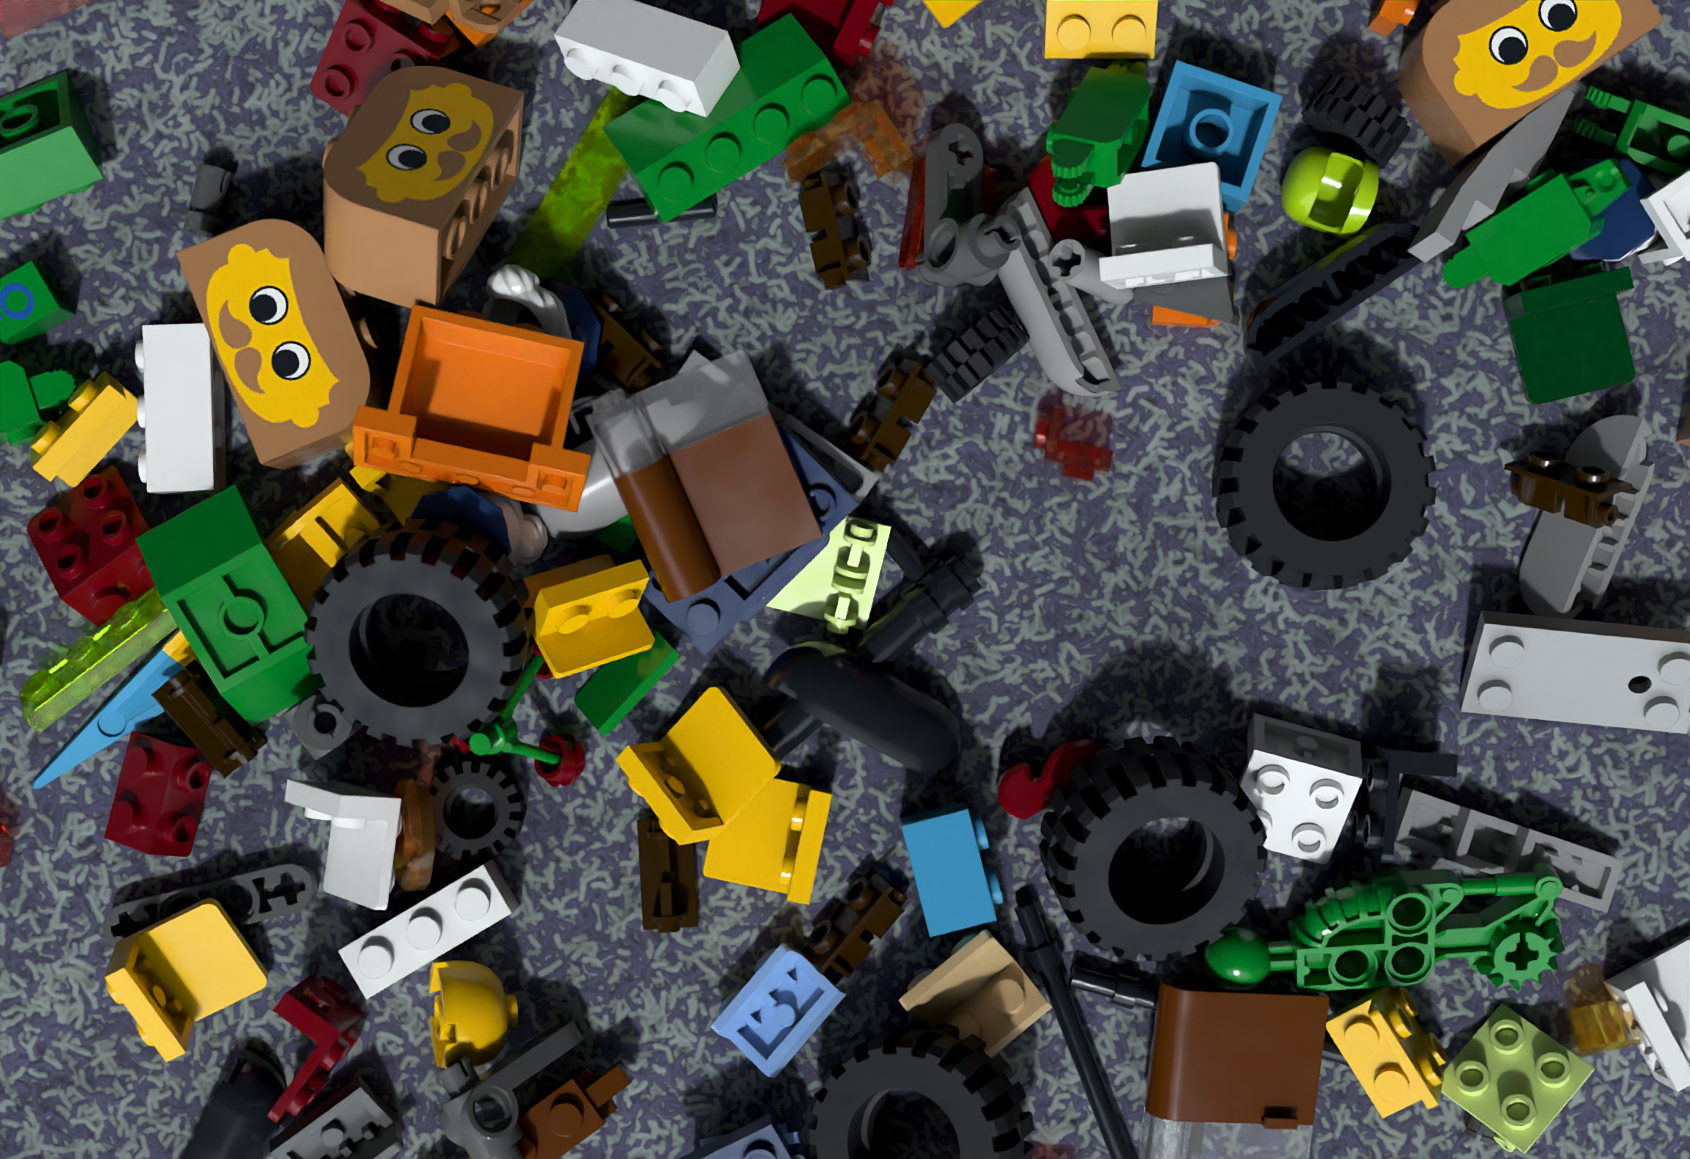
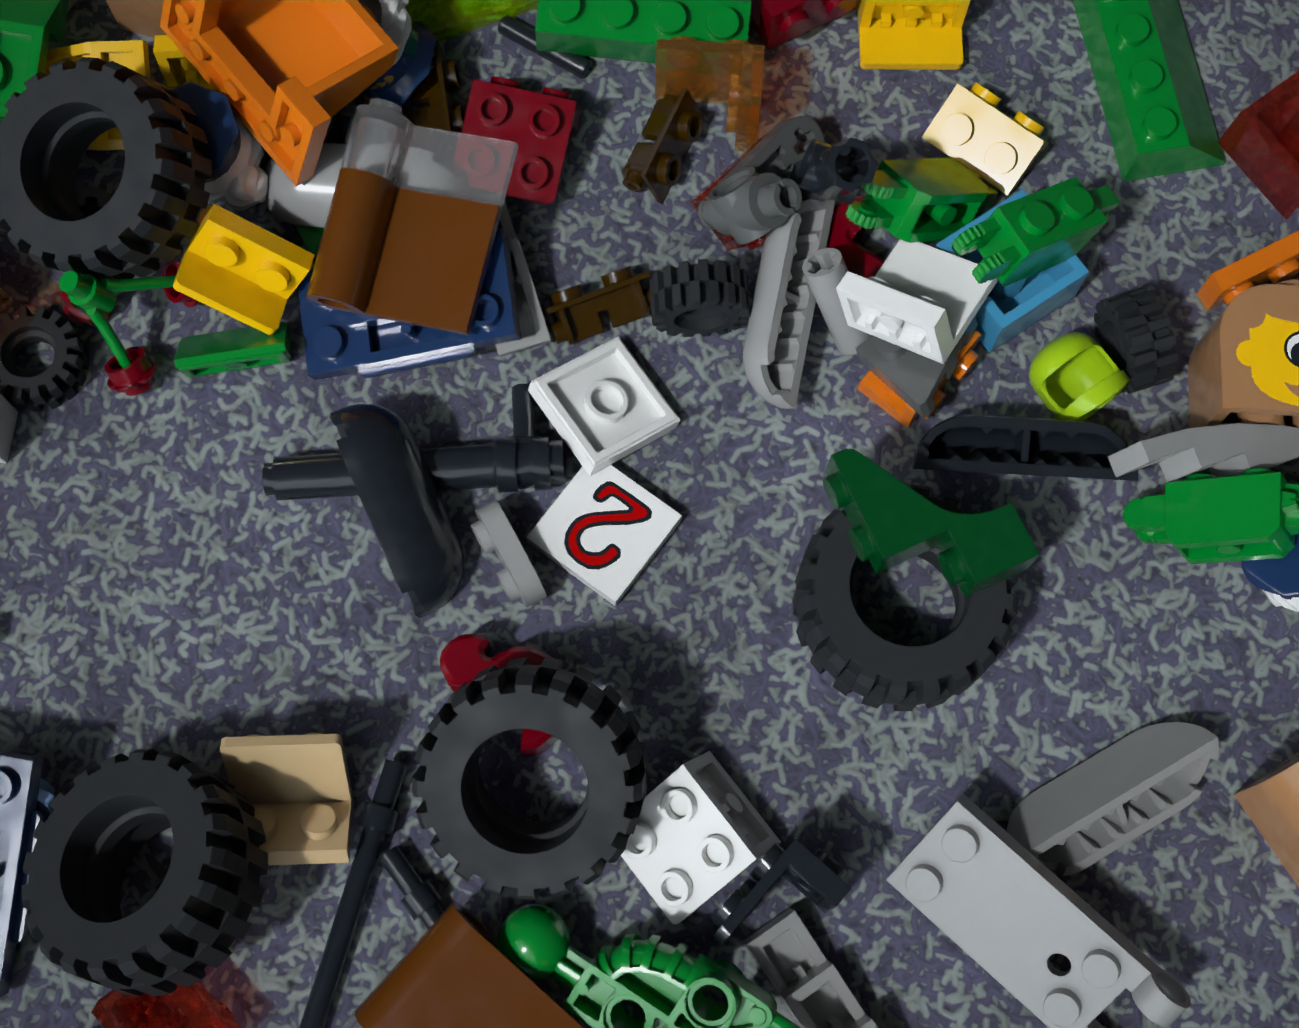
camera: 35 degrees right, 15 degrees down
(666, 880) = (138, 520): dark brown hinge -> none
(702, 768) = (227, 457): yellow bracket -> none
(713, 314) = (534, 121): none -> dark red bracket
(774, 840) = (241, 548): yellow bracket -> none
(777, 1008) = (128, 688): light blue bracket -> none
(836, 942) = (223, 676): dark brown hinge -> none
(841, 578) = (460, 393): yellowish green hinge -> none
(949, 869) = (355, 671): dark azure brick -> none
(963, 499) = (603, 405): none -> white tile
(1004, 690) = (518, 575): none -> light grey plate
(1026, 181) = (834, 170): none -> black piece
(1039, 598) = (604, 530): none -> white tile
(1077, 460) = (717, 437): clear red bracket -> none
(1228, 105) = (1036, 231): none -> green hinge
(1294, 447) = (898, 524): none -> dark green arch
(1570, 333) = (1203, 632): dark green bracket -> none
(1587, 488) = (1125, 759): dark brown hinge -> none

